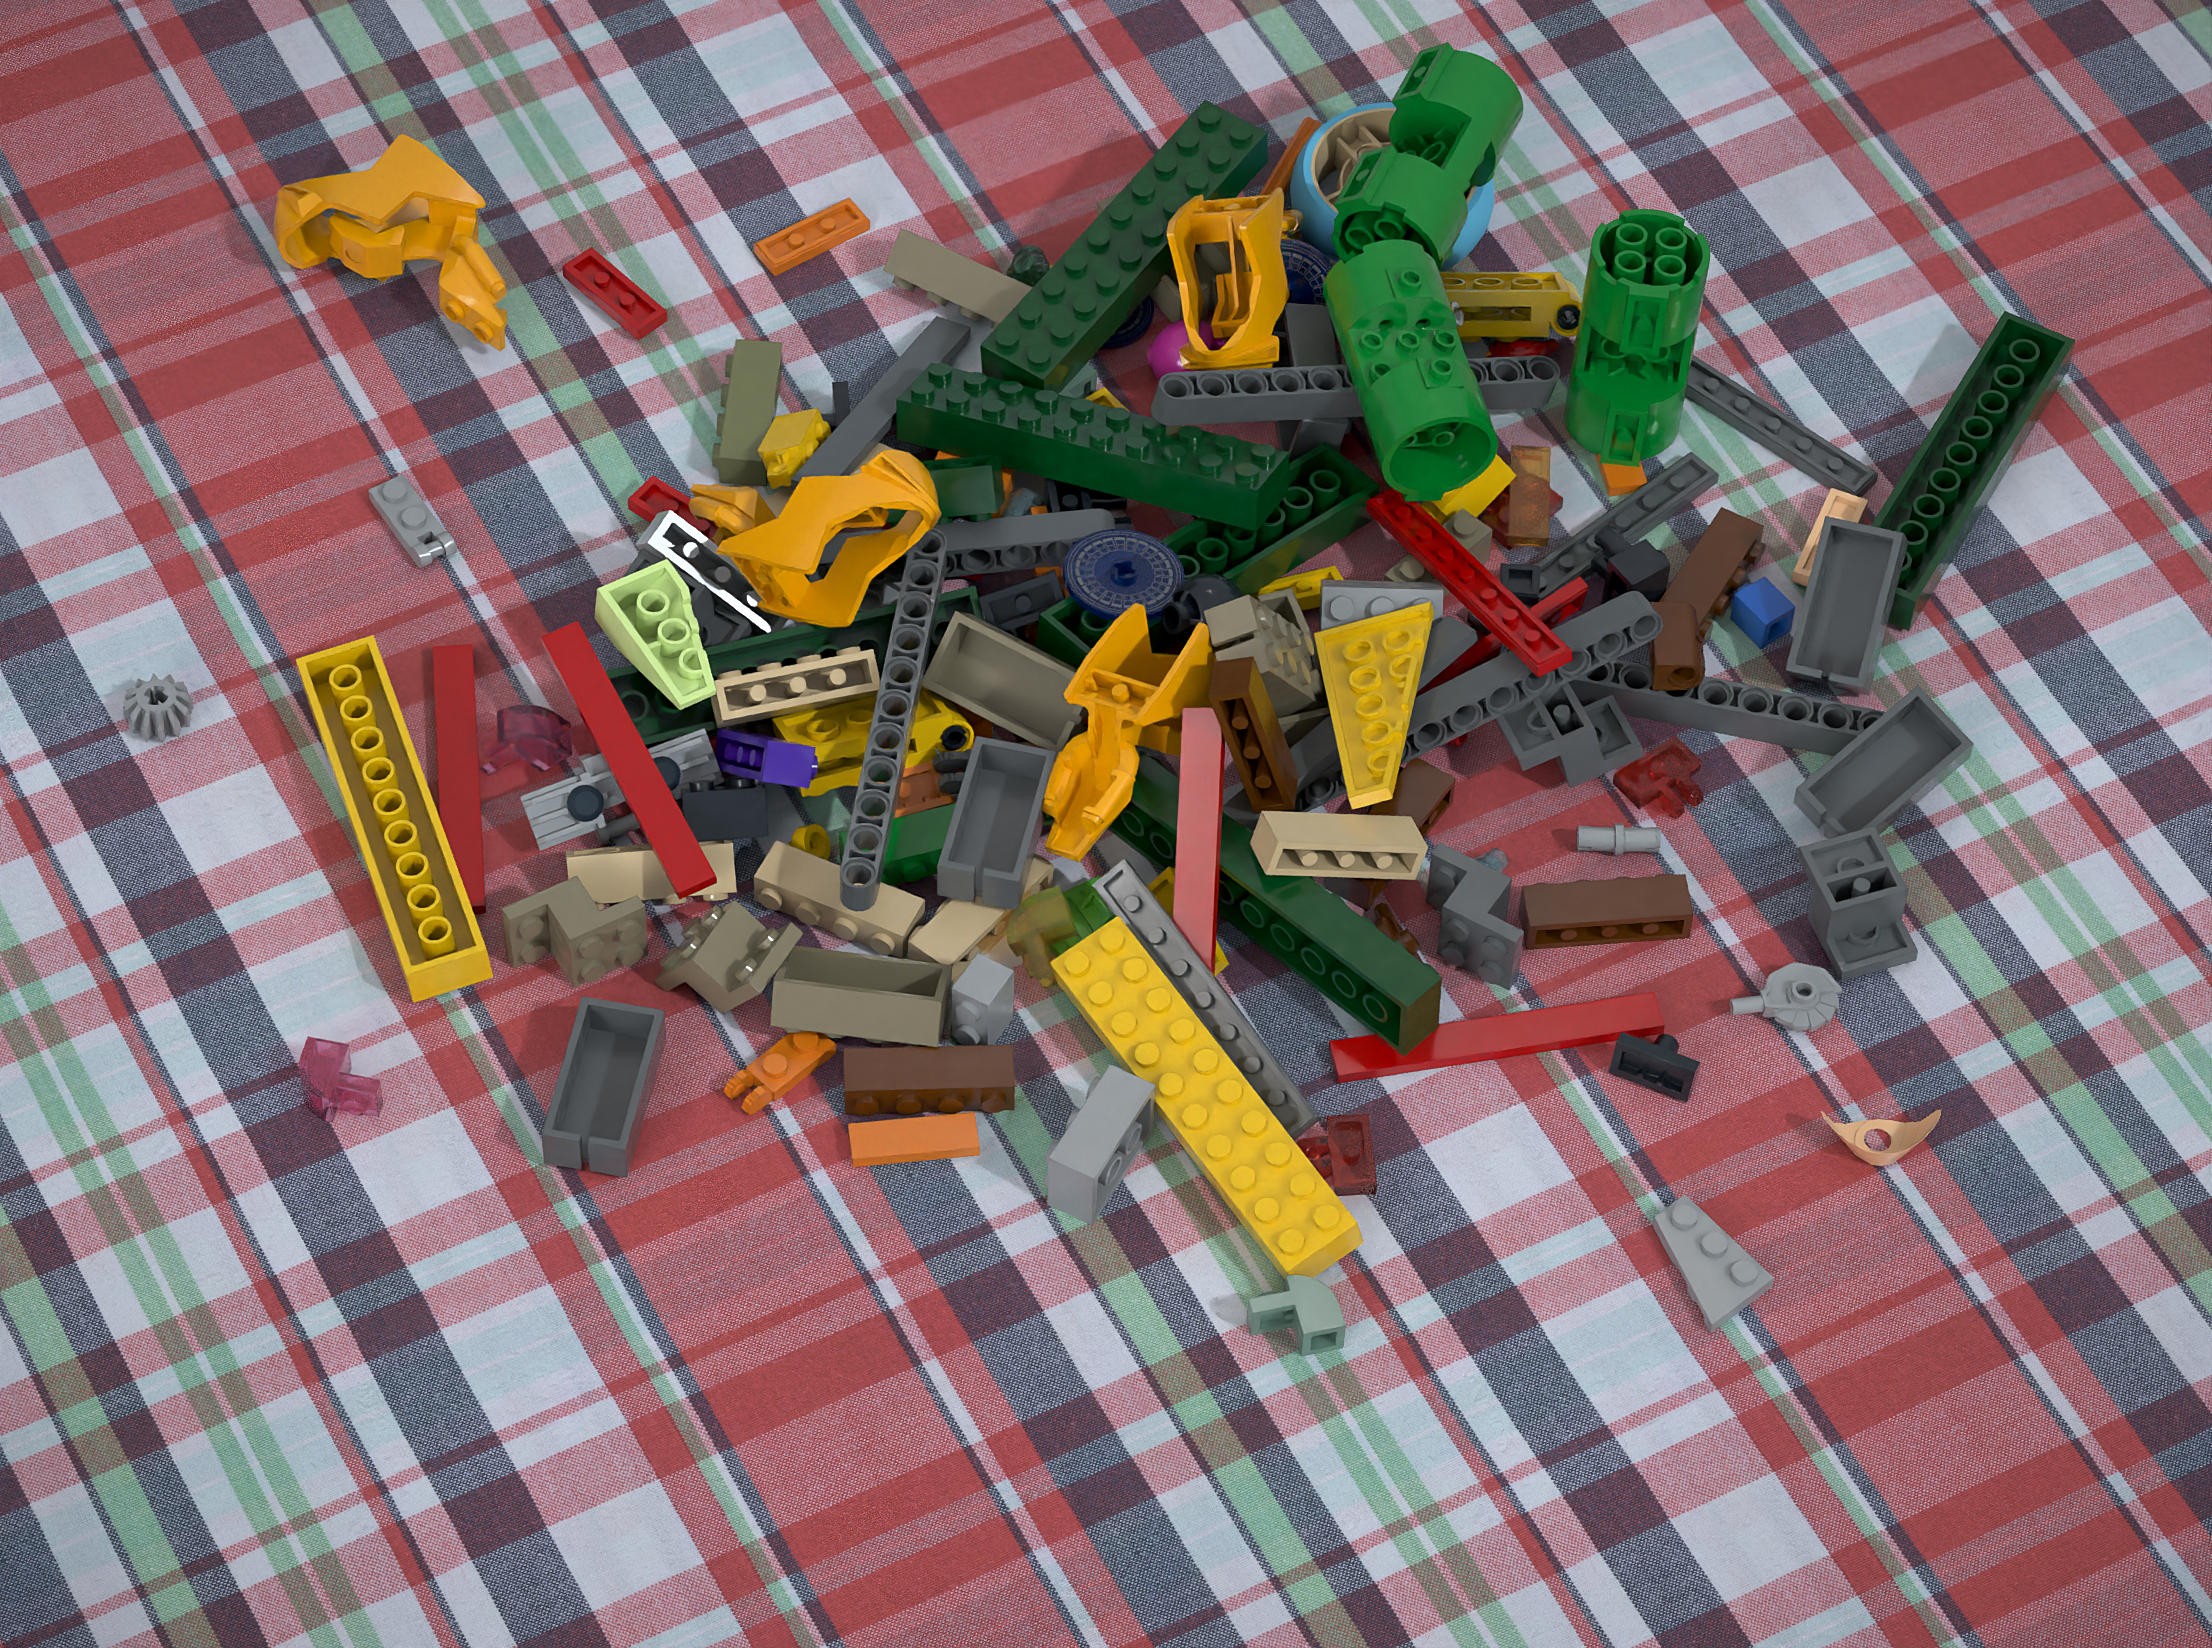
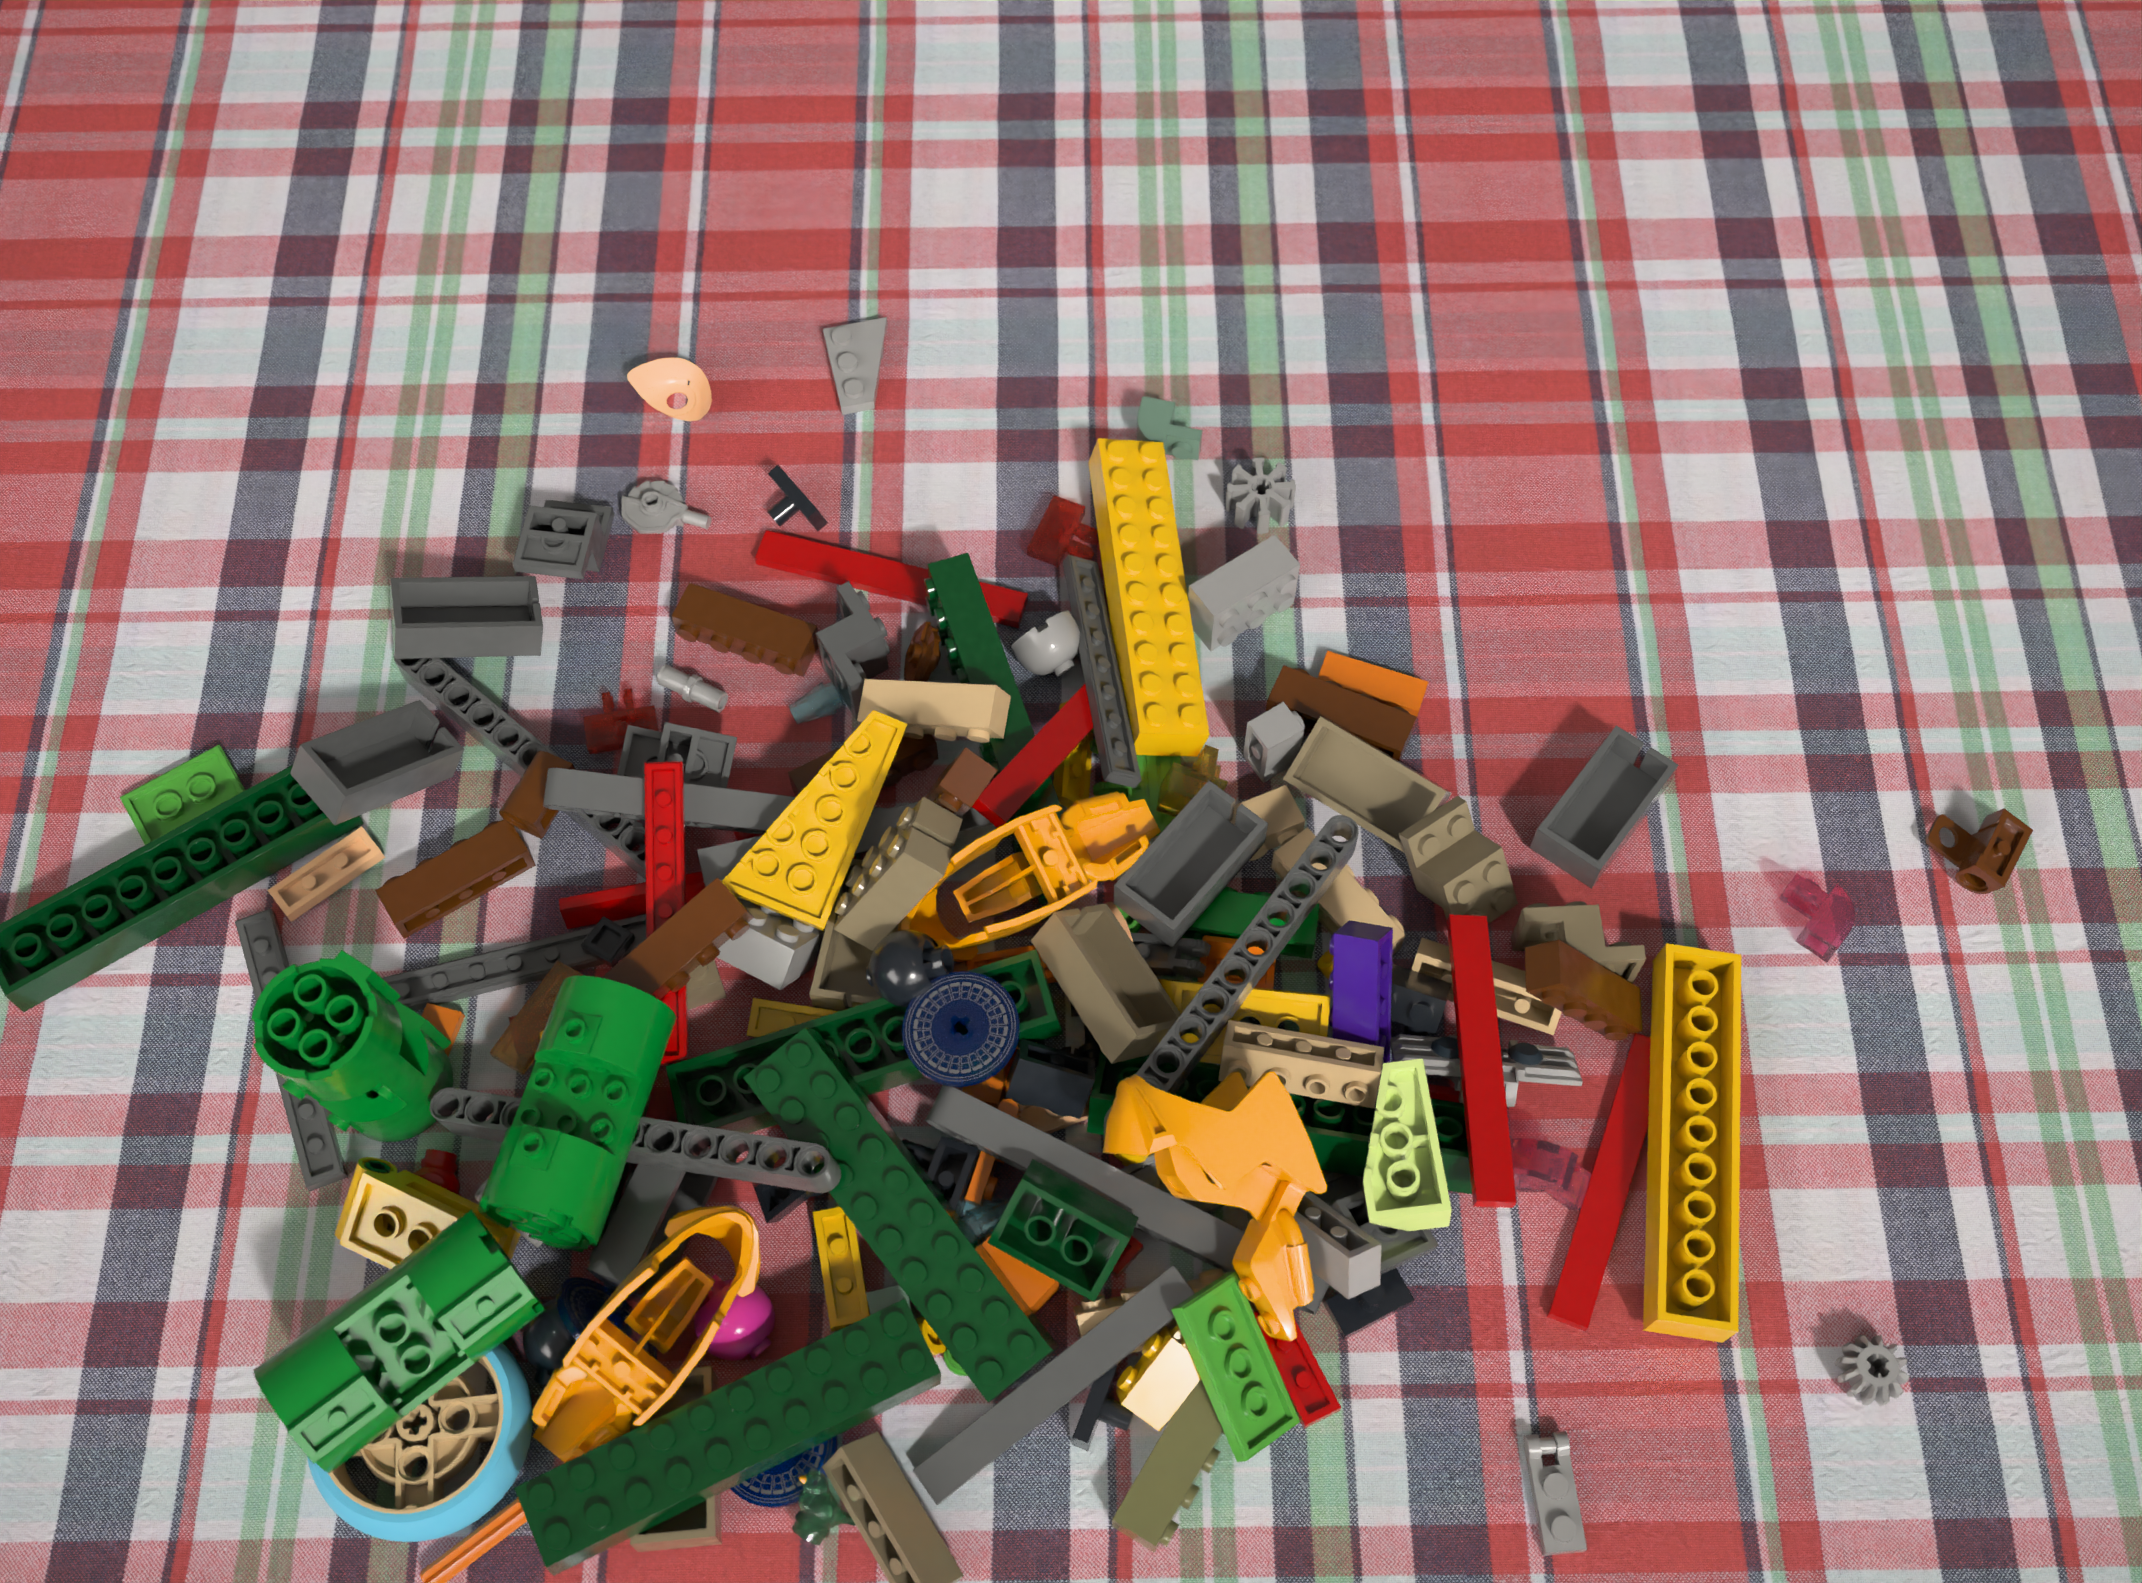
camera: 150 degrees left, 10 degrees up
(174, 1220) = (1986, 856): none -> reddish brown piece
(561, 849) = (1583, 989): none -> reddish brown brick
(735, 458) = (1235, 1366): none -> bright green tile
(780, 1069) = (1458, 777): orange hinge -> none
(1147, 1286) = (1260, 495): none -> light grey gear
(1281, 1013) = (1049, 646): none -> light grey cylinder
(1427, 537) = (684, 942): none -> reddish brown brick
(1629, 566) = (522, 887): black brick -> none
(1762, 612) = (433, 827): blue brick -> none
(2021, 553) = (182, 794): none -> bright green tile

